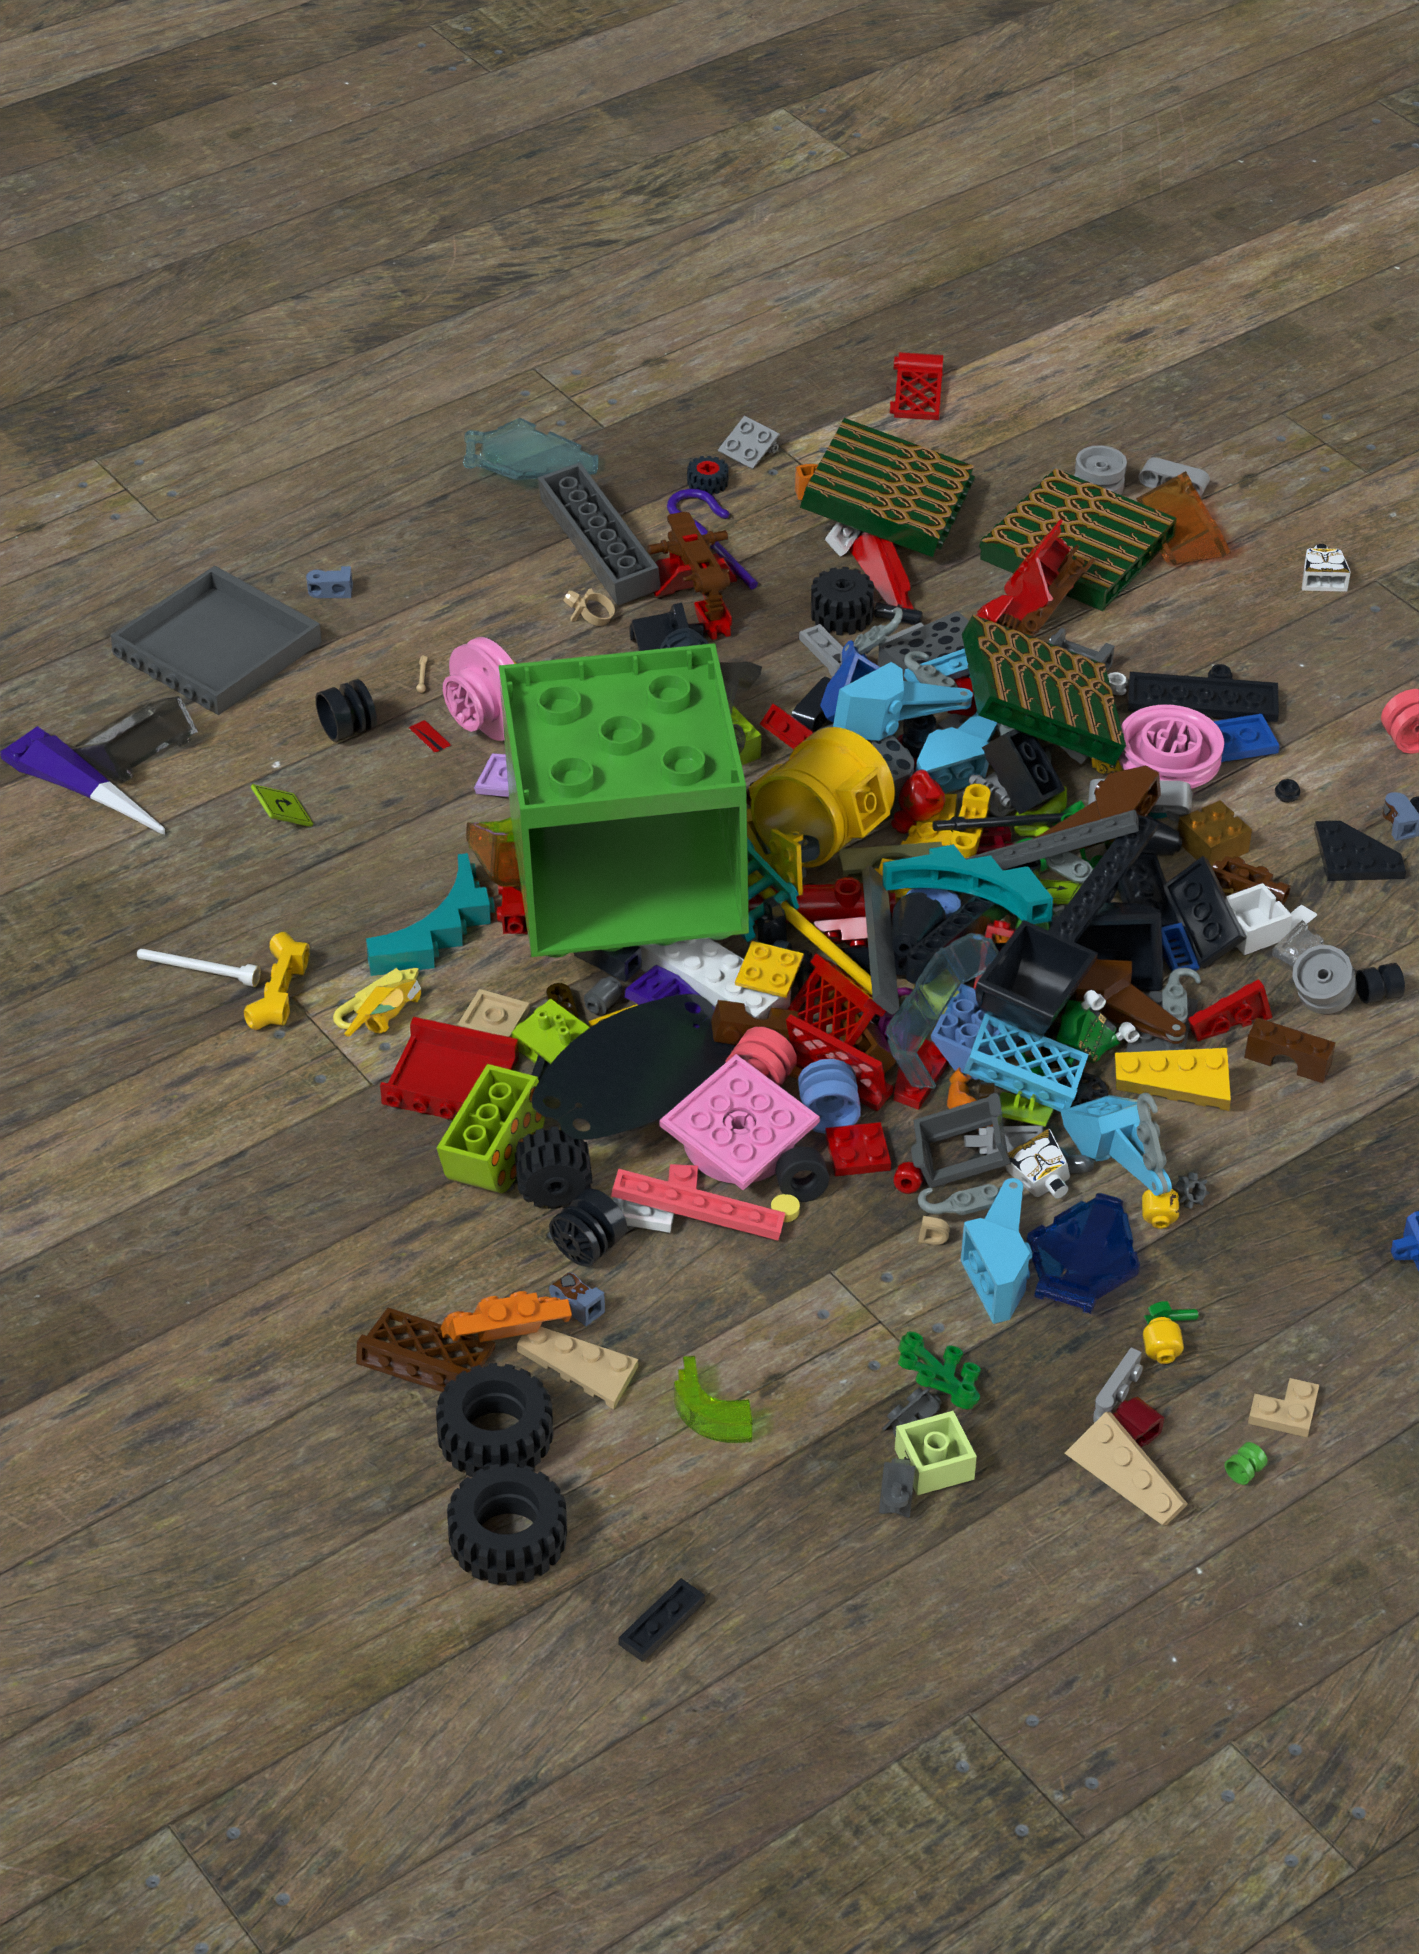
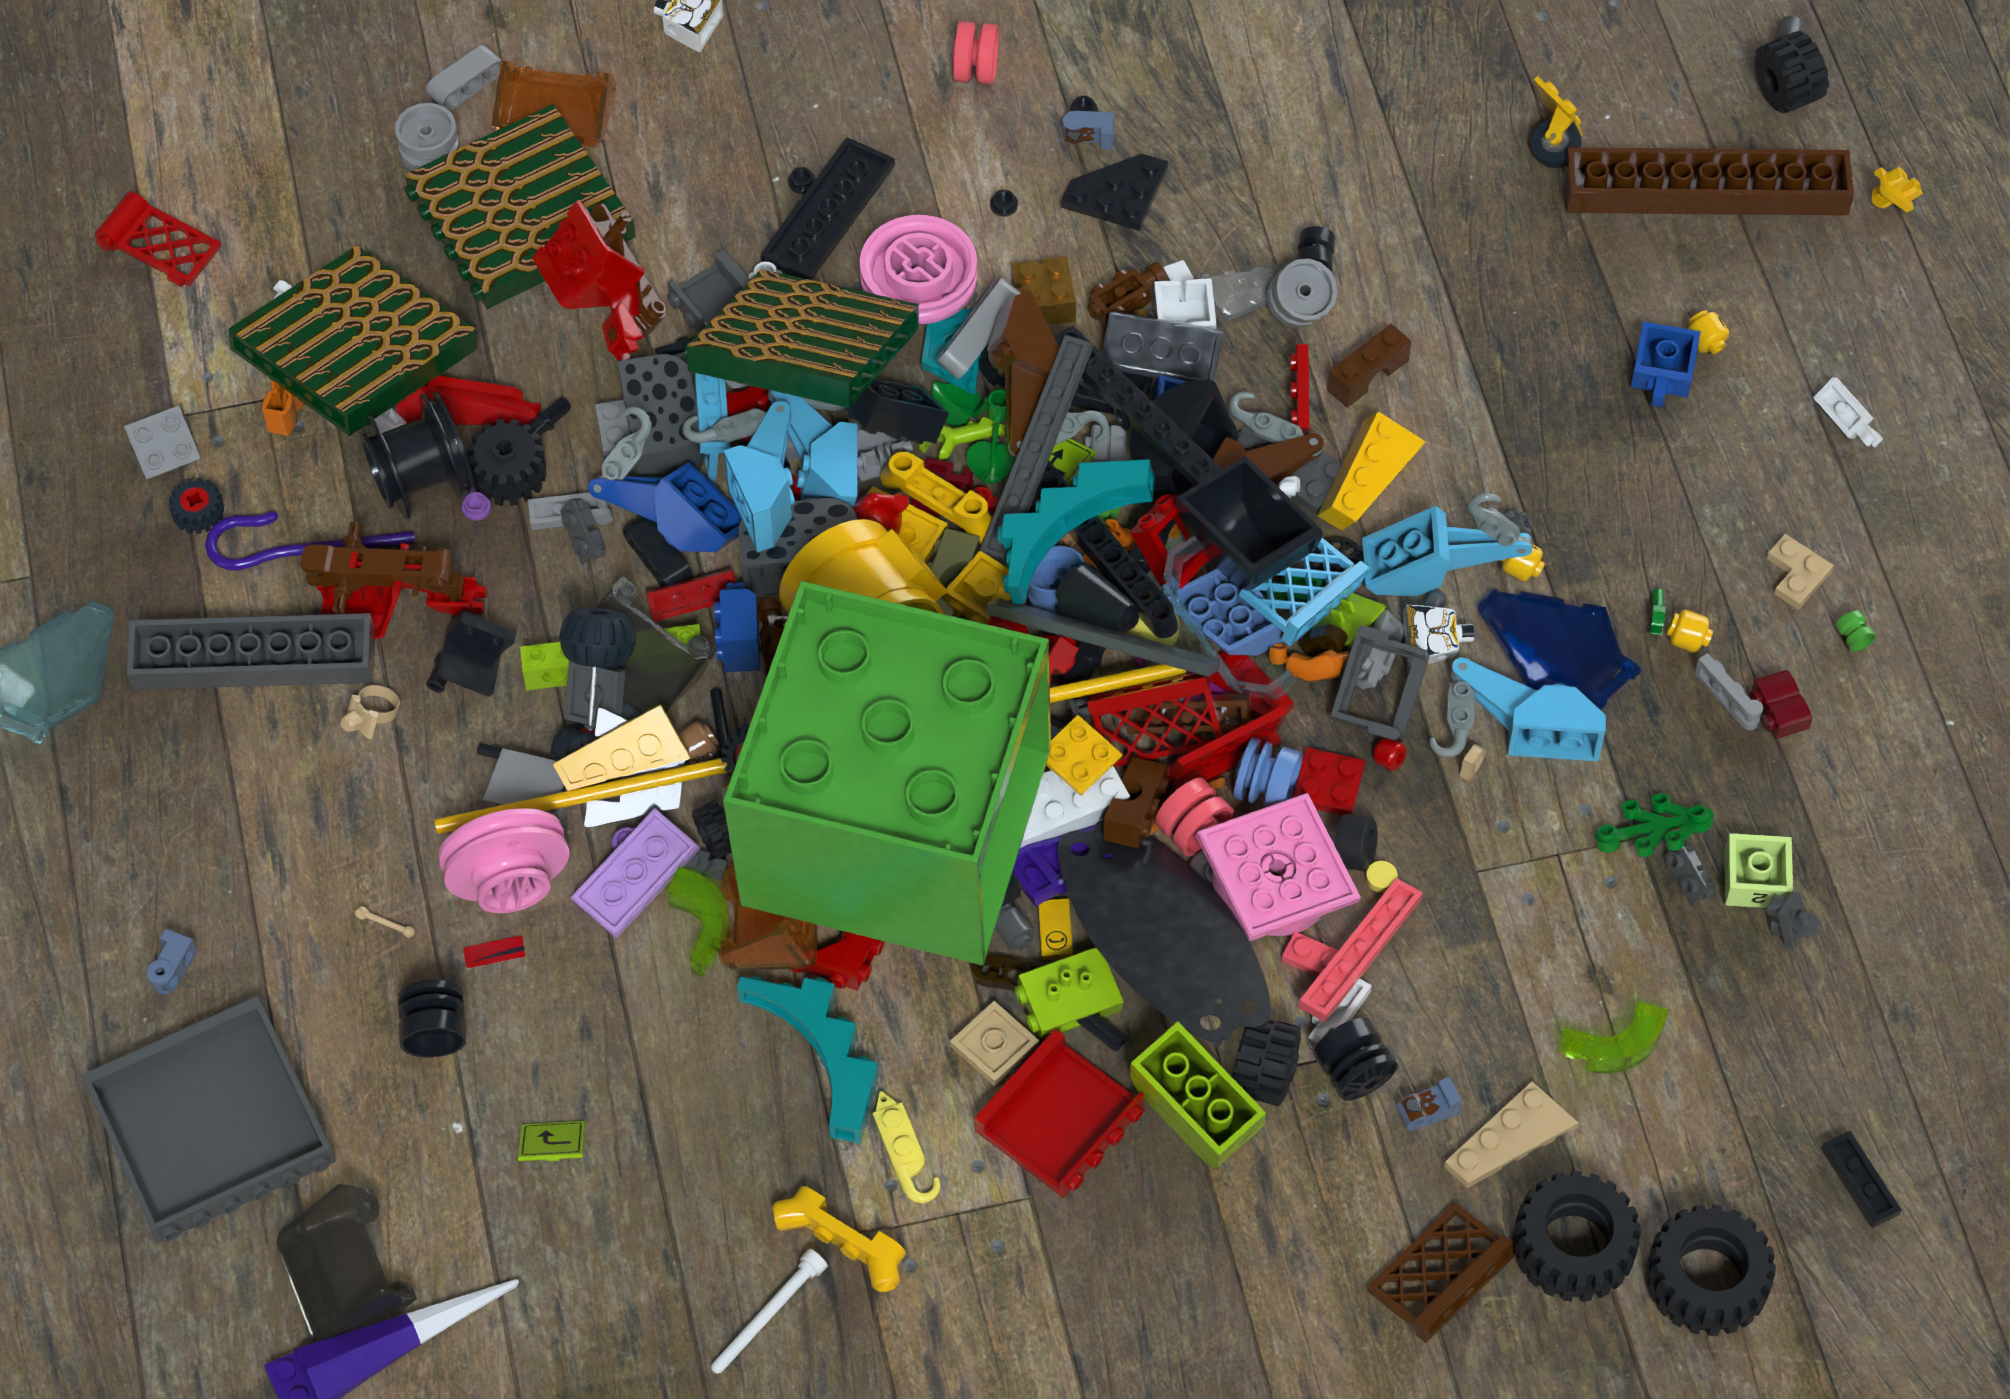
camera: 65 degrees left, 15 degrees up
(384, 1004) = (936, 1142): yellow animal -> none
(506, 1317) = (1459, 1157): orange bracket -> none
(767, 750) = (737, 629): none -> blue hinge
(799, 604) = (476, 506): none -> medium lavender plate
(803, 664) = (585, 543): none -> dark grey hinge
(807, 544) = (417, 455): none -> black wheel
(961, 823) = (946, 498): black bar -> none
(1121, 1464) = (1828, 726): tan wing -> none
(1247, 737) = (907, 196): blue plate -> none

